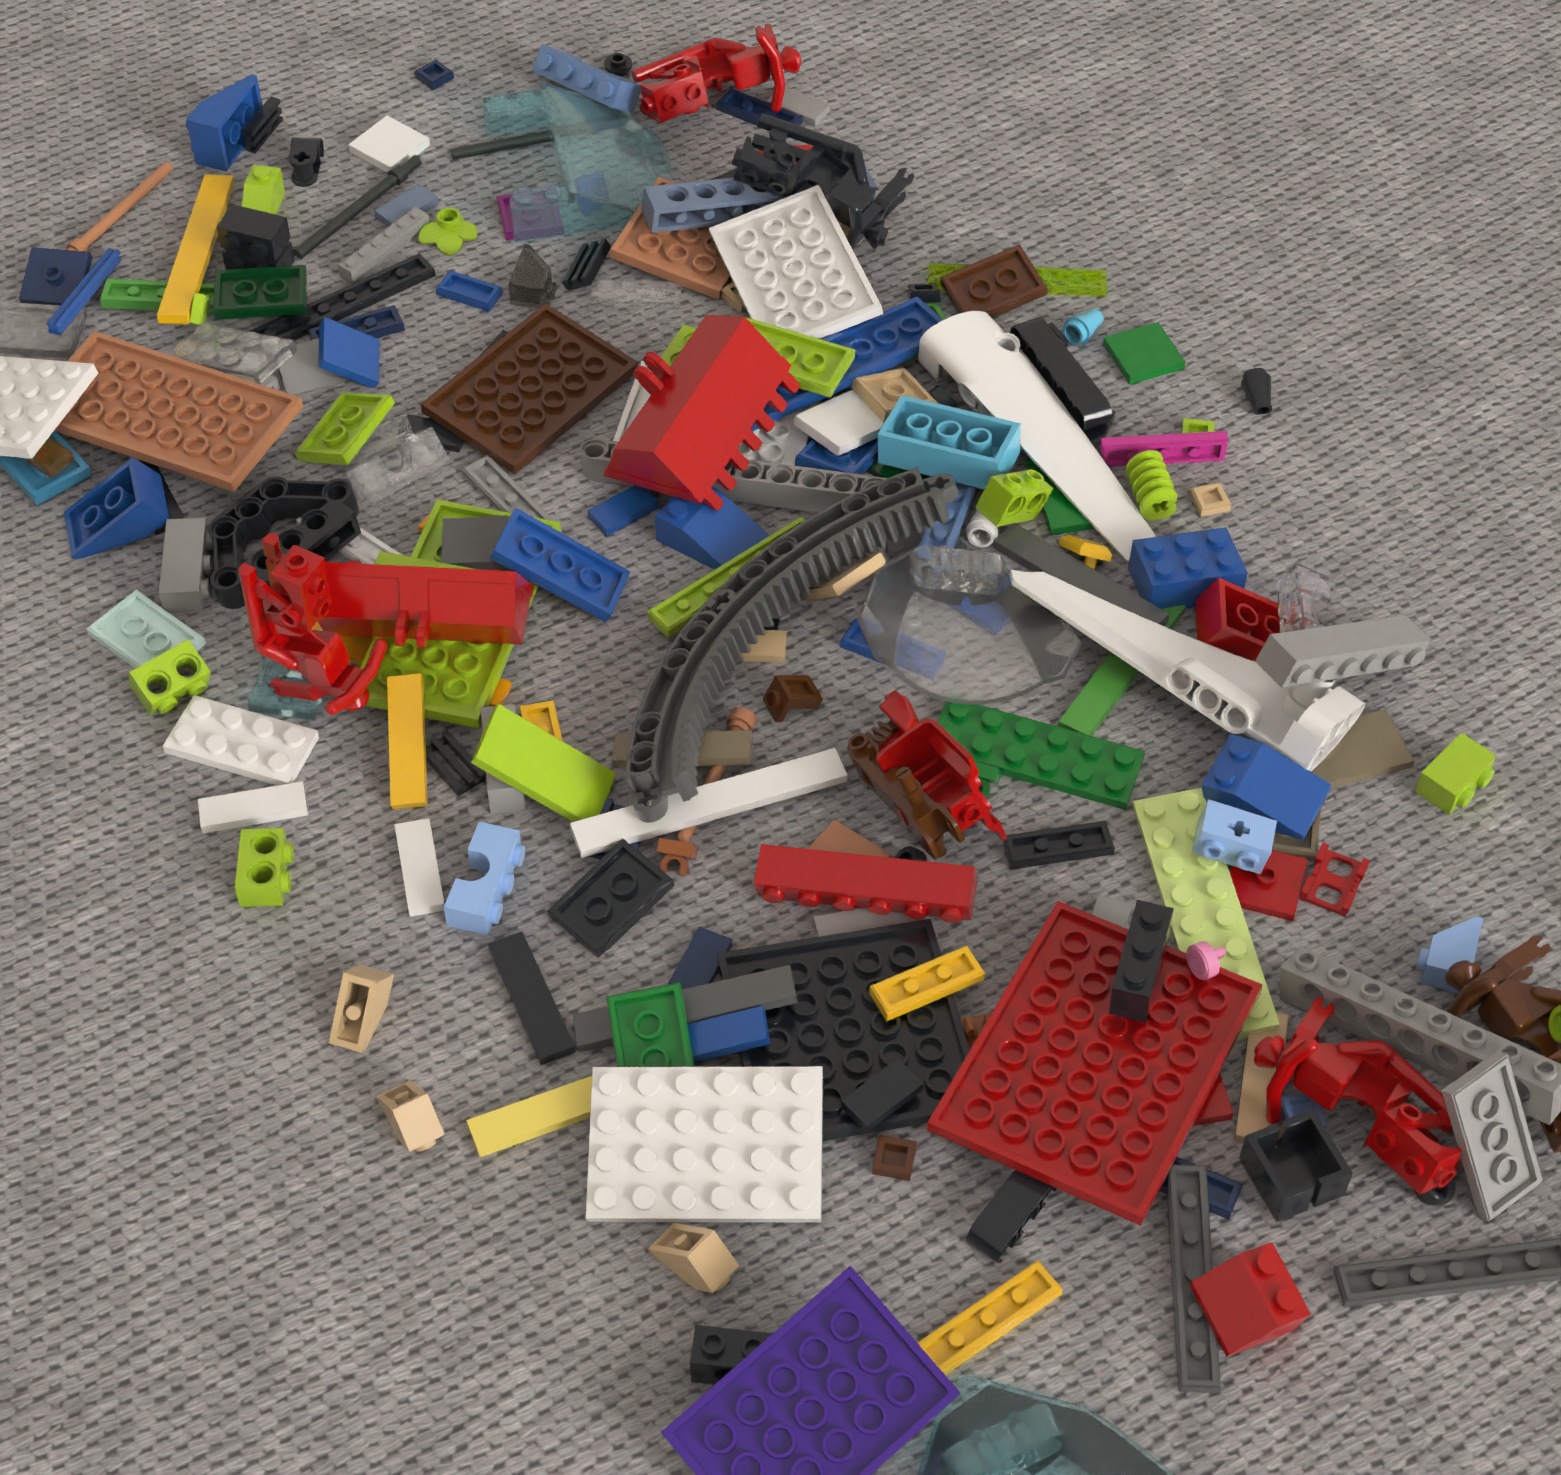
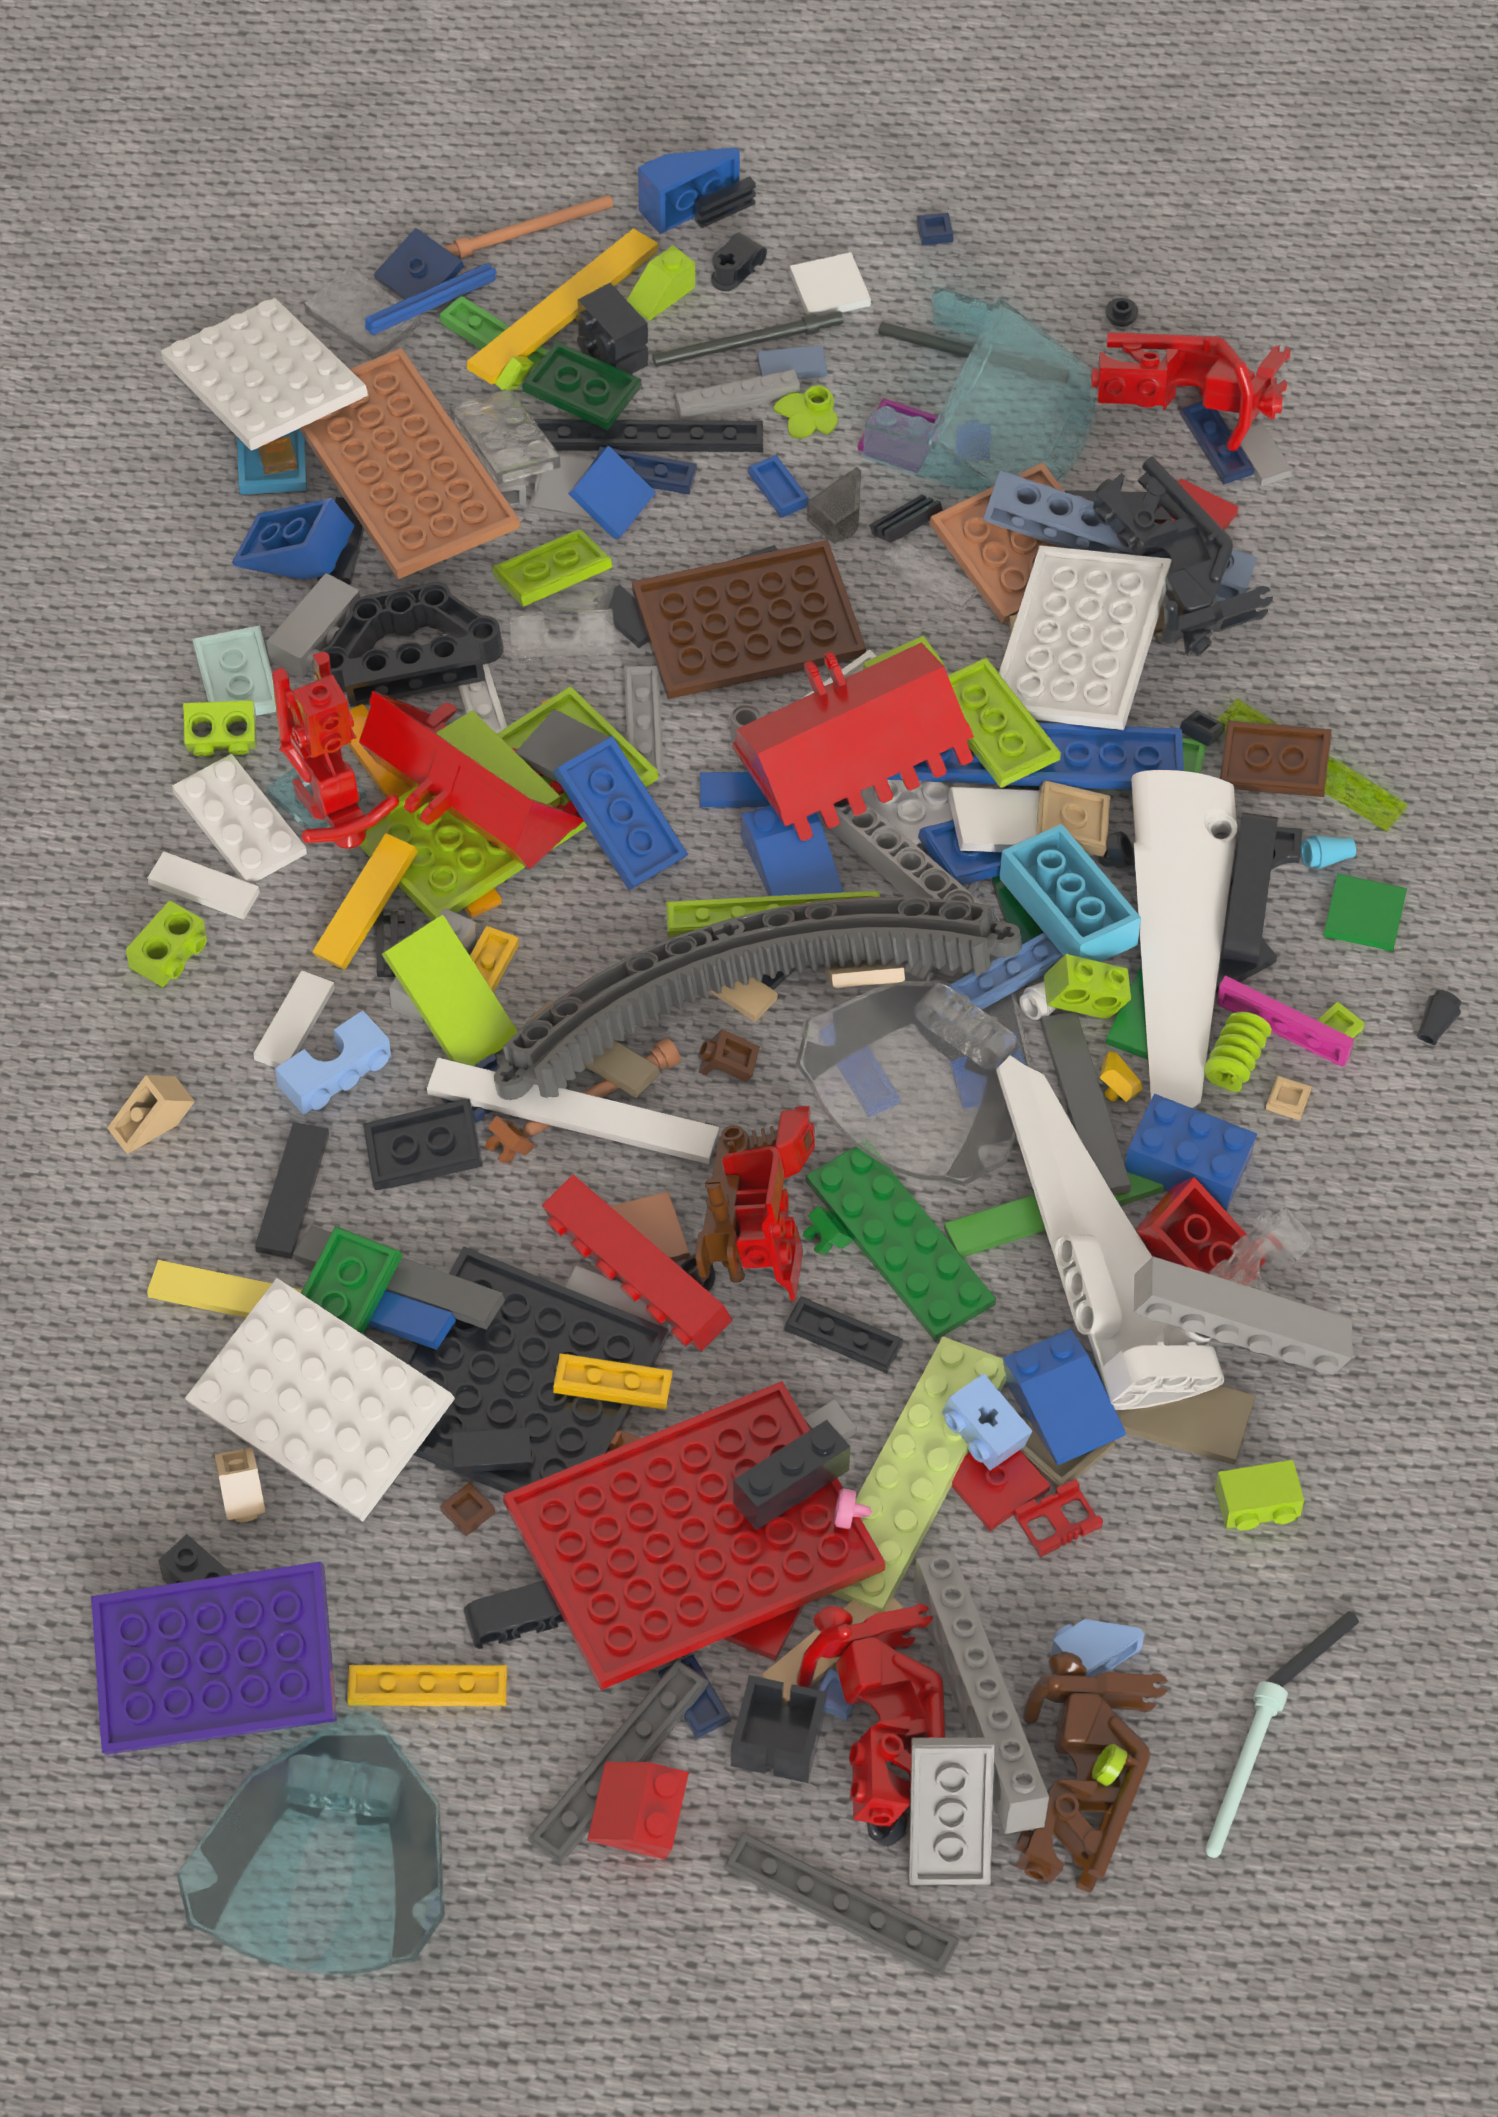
camera: 35 degrees right, 5 degrees up
(411, 1116) = (116, 1228): tan slope -> none
(586, 79) = (1071, 336): medium blue arch -> none
(700, 959) = (444, 1247): dark blue tile -> none

